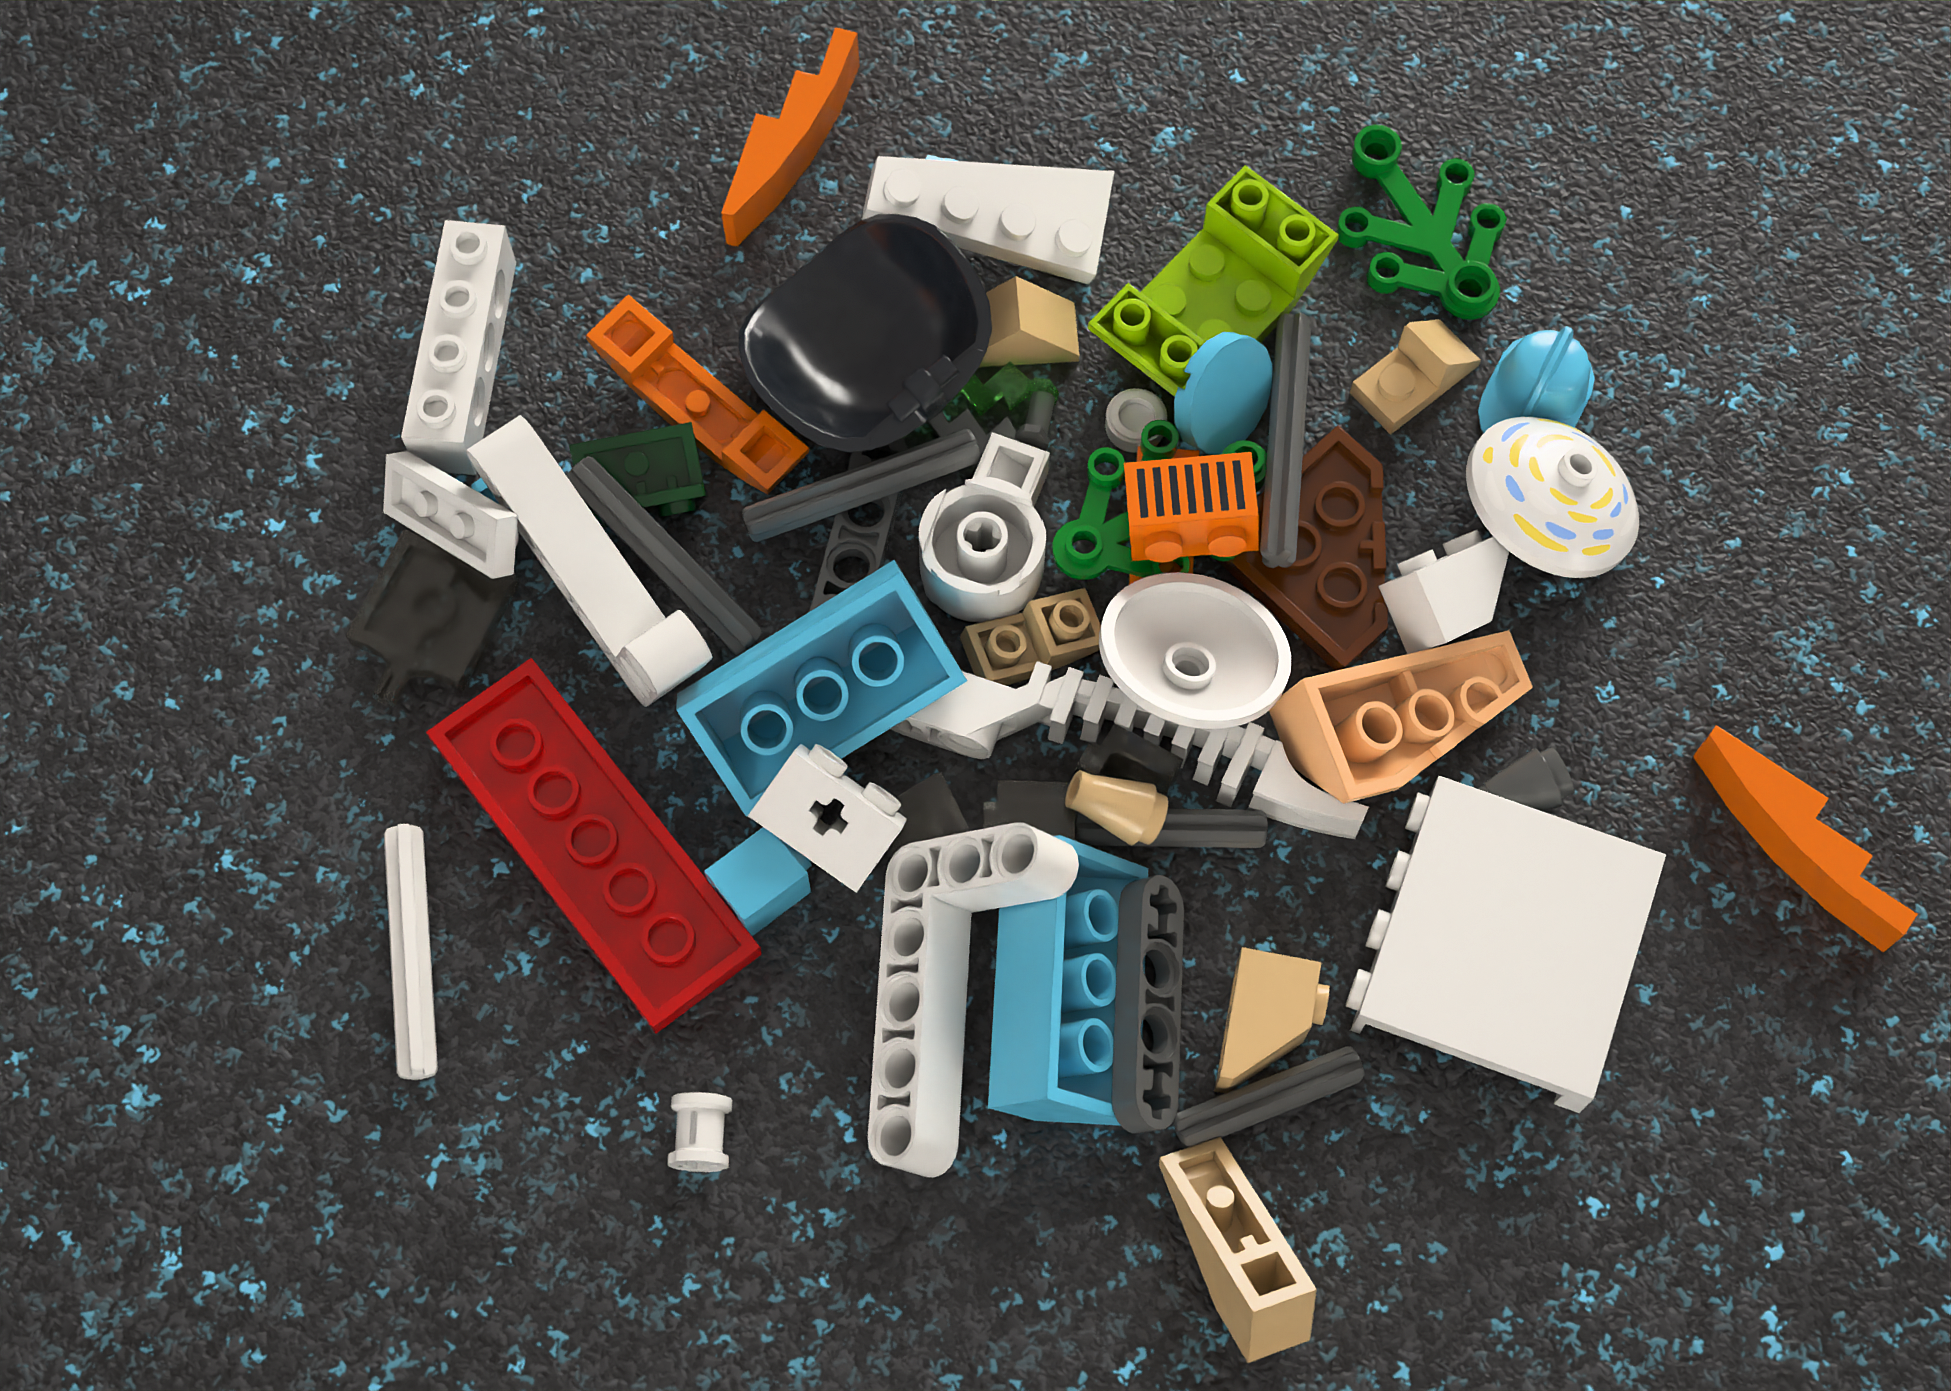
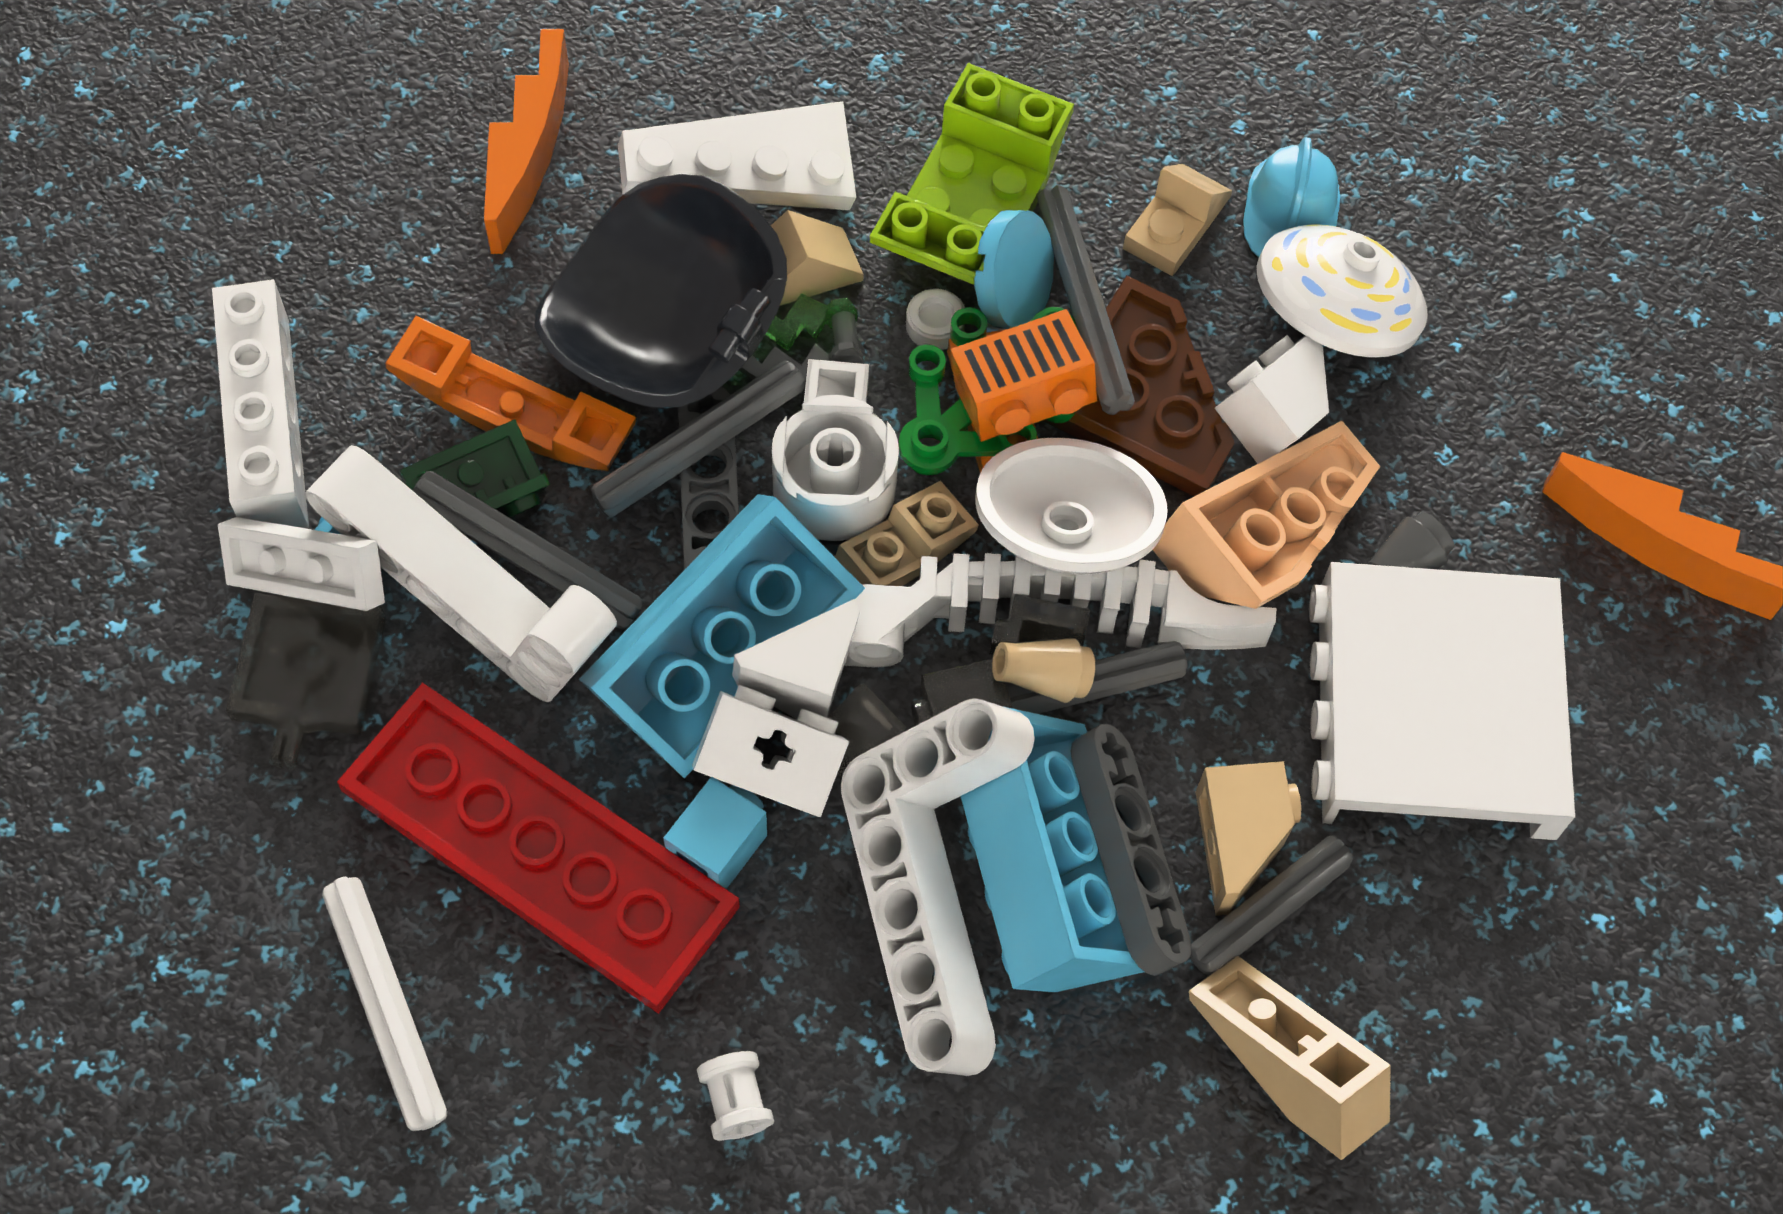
camera: 20 degrees left, 5 degrees down
(884, 740) = (801, 663): none -> white slope
(1424, 232) = (1077, 36): green plant -> none

